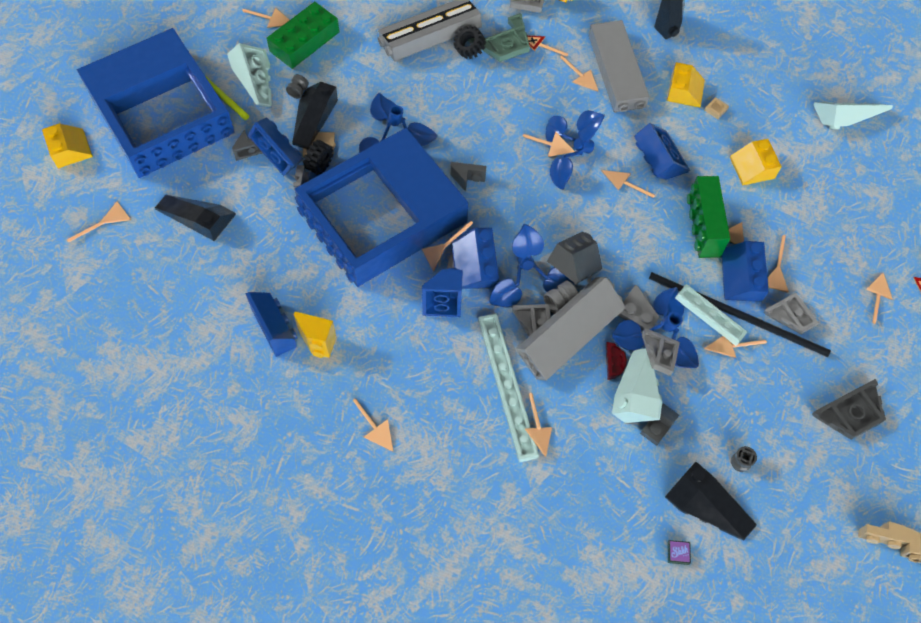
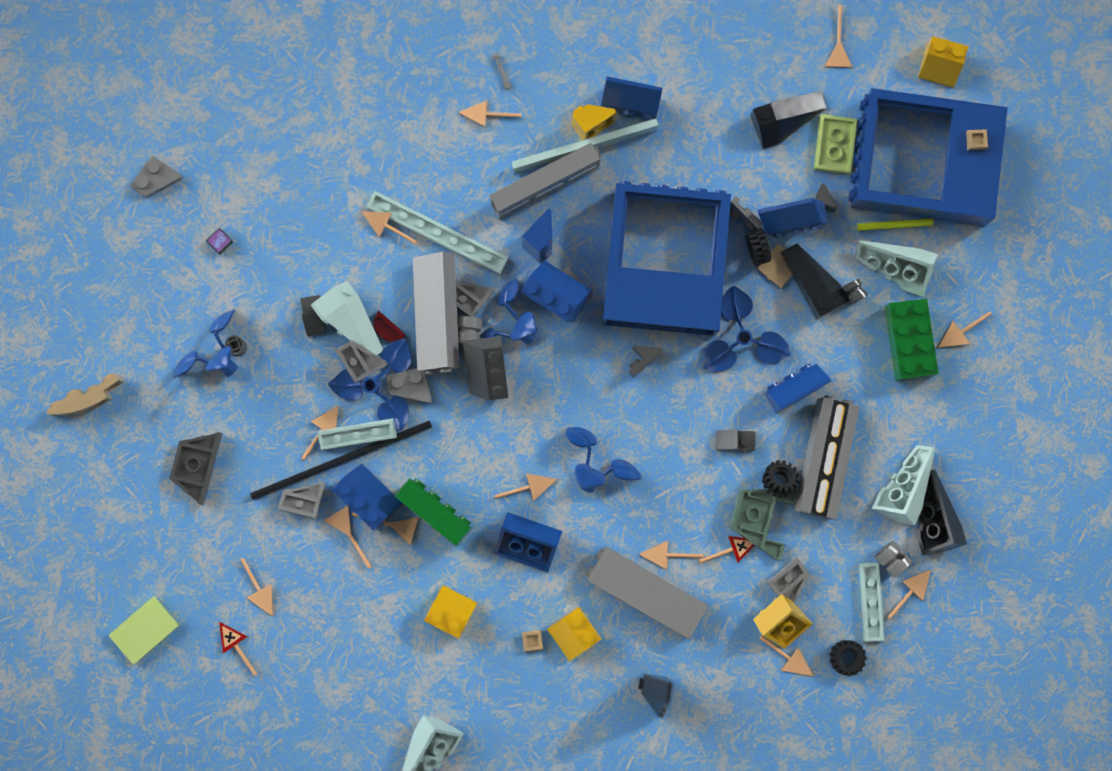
camera: 130 degrees right, 20 degrees up
(119, 69) = (977, 139): none -> tan tile
(192, 170) = (835, 144): none -> yellowish green tile
(336, 431) = (507, 85): none -> light grey hinge
(343, 331) = (599, 141): none -> light aqua tile
(396, 330) = (545, 180): none -> light grey brick
(399, 69) = (796, 387): none -> blue slope
(434, 253) = (591, 271): light nougat piece -> none
(469, 87) = (735, 440): none -> dark grey slope
(558, 145) = (607, 458): light nougat piece -> none
(706, 499) = (234, 292): black wedge -> none
(775, 440) = (220, 361): none -> blue plant

